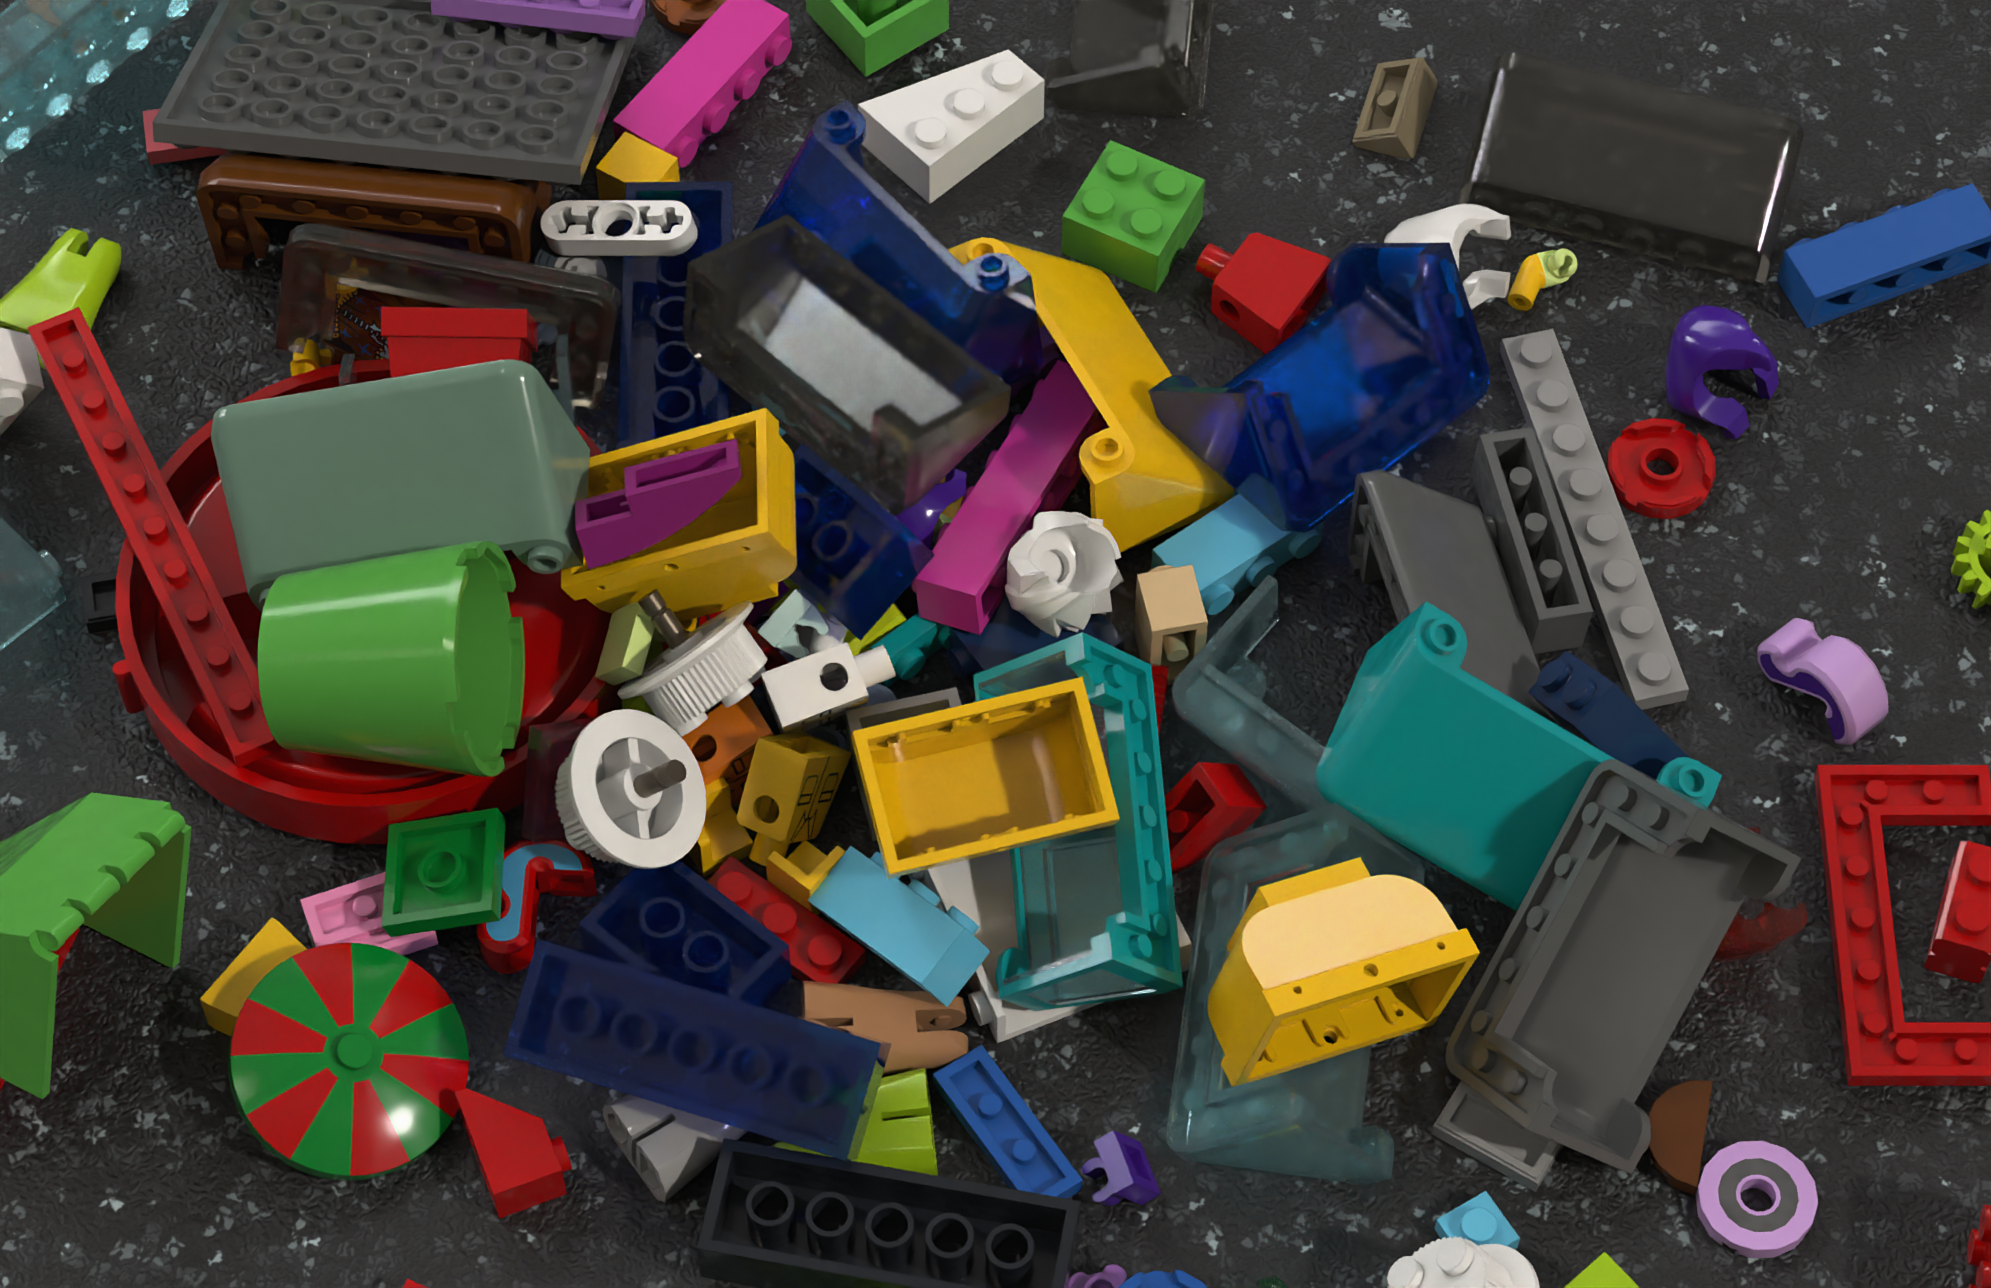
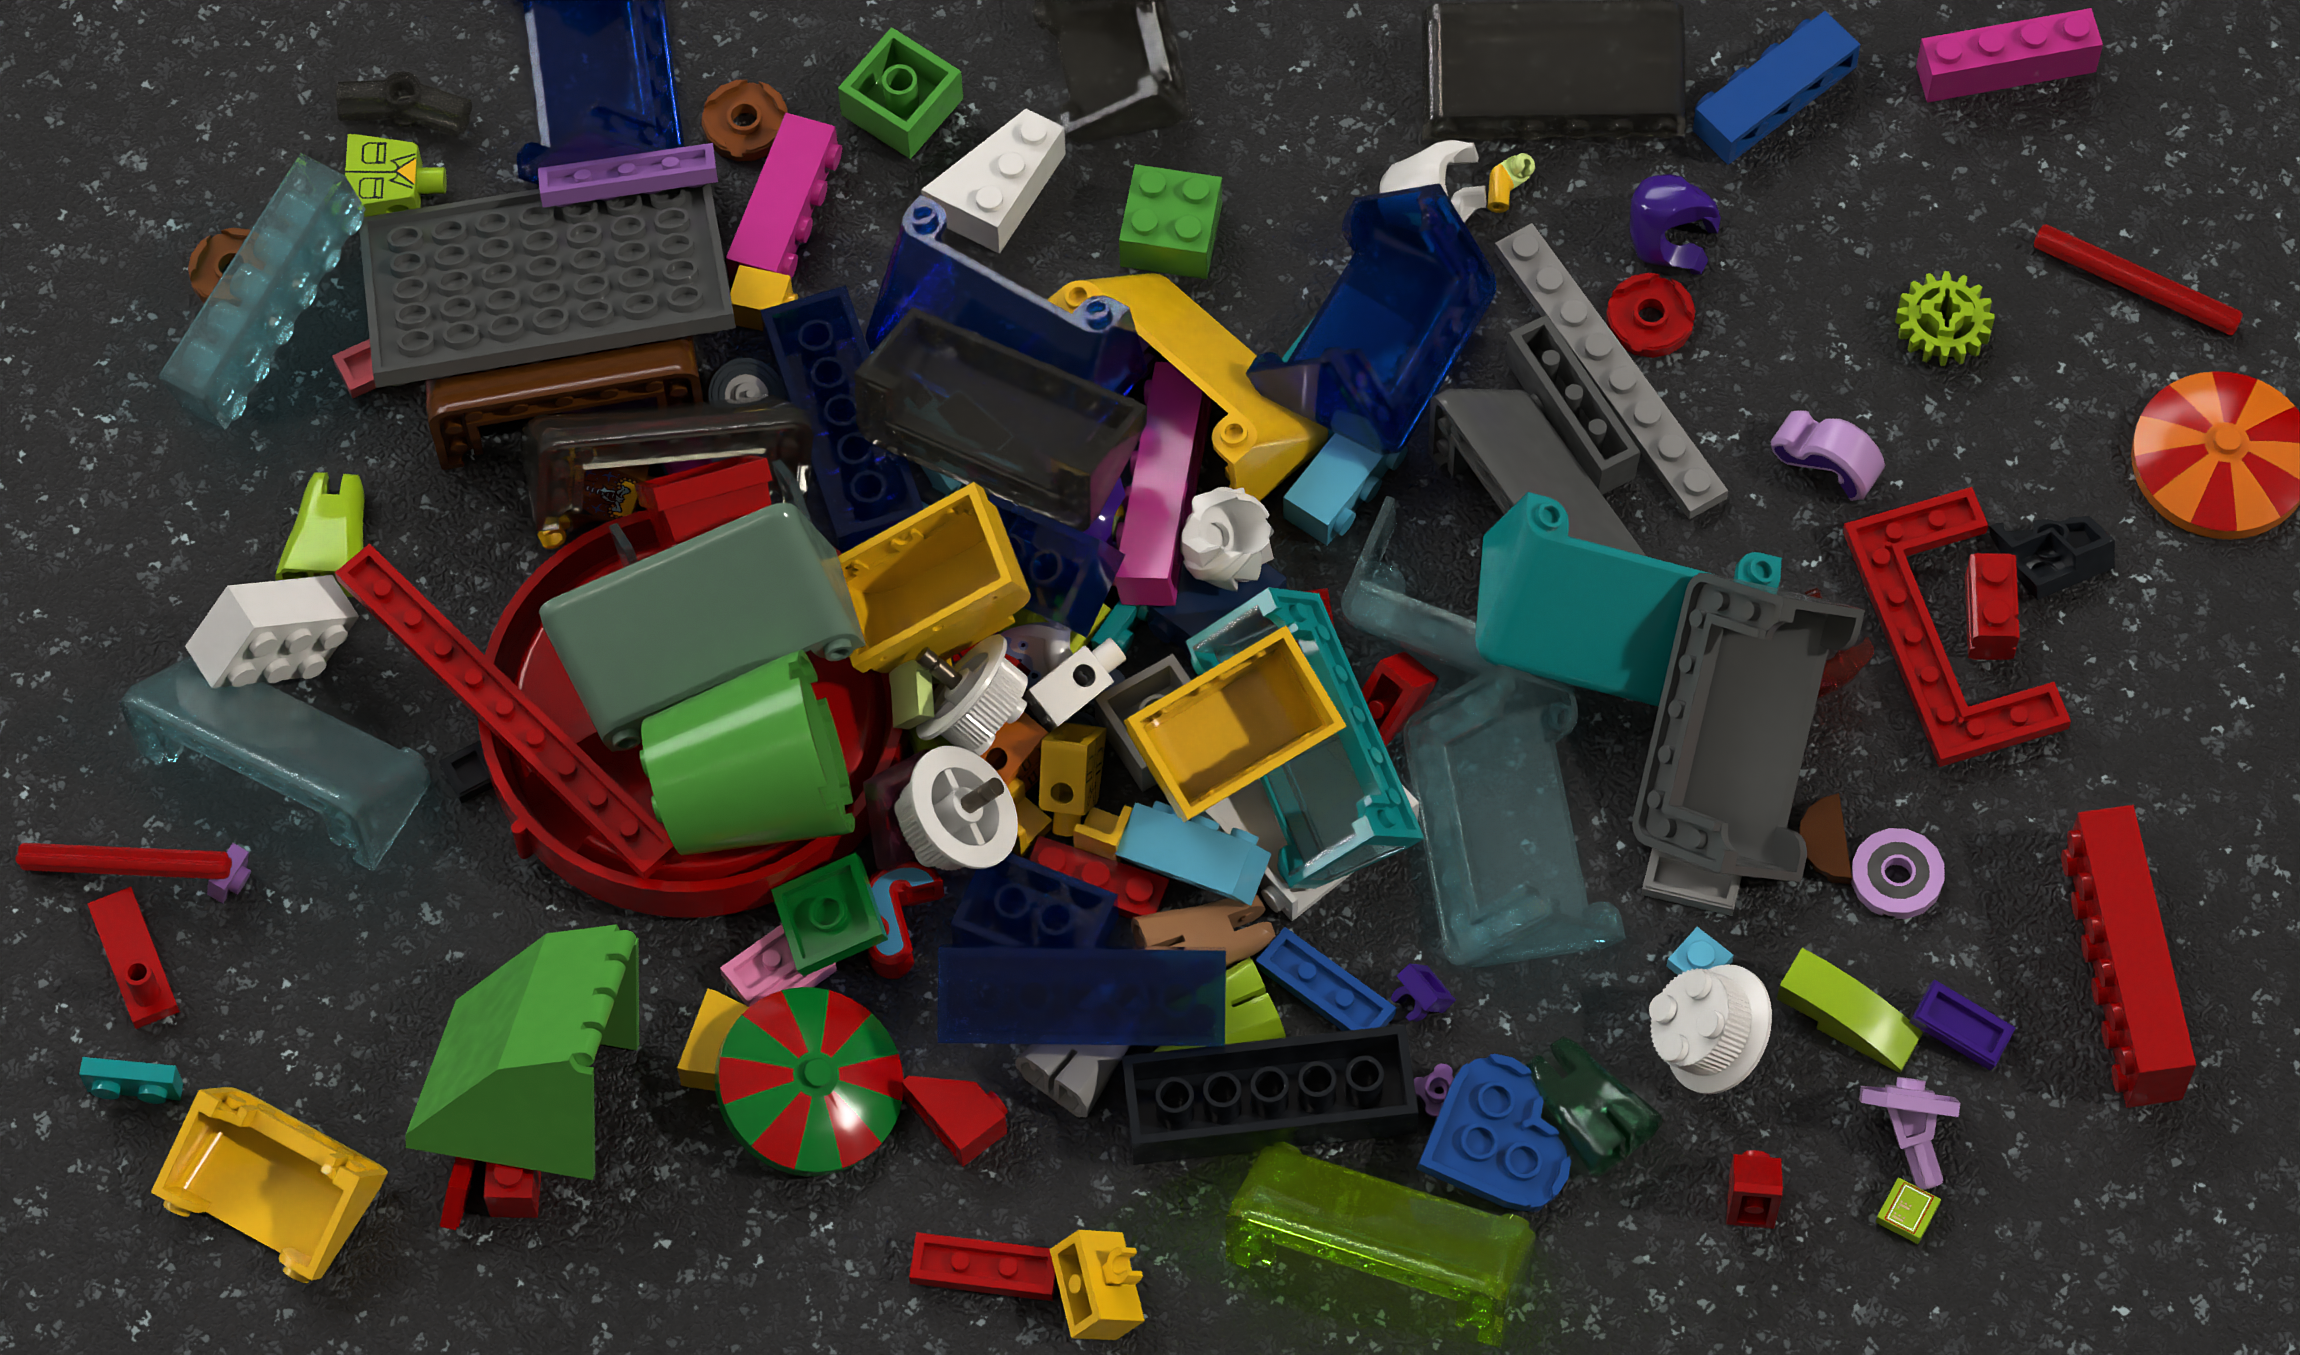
camera: 15 degrees left, 5 degrees up
(638, 241) = (788, 361): white beam -> none
(655, 502) = (913, 579): magenta slope -> none
(782, 625) = (1022, 642): light aqua tile -> none
(1169, 618) = (1317, 552): tan brick -> none
(1264, 287) = (1295, 253): red torso -> none
(1334, 961) = (1532, 786): yellow container -> none
(1396, 108) = (1346, 67): dark tan slope -> none
(1602, 715) = (1677, 537): dark blue brick -> none

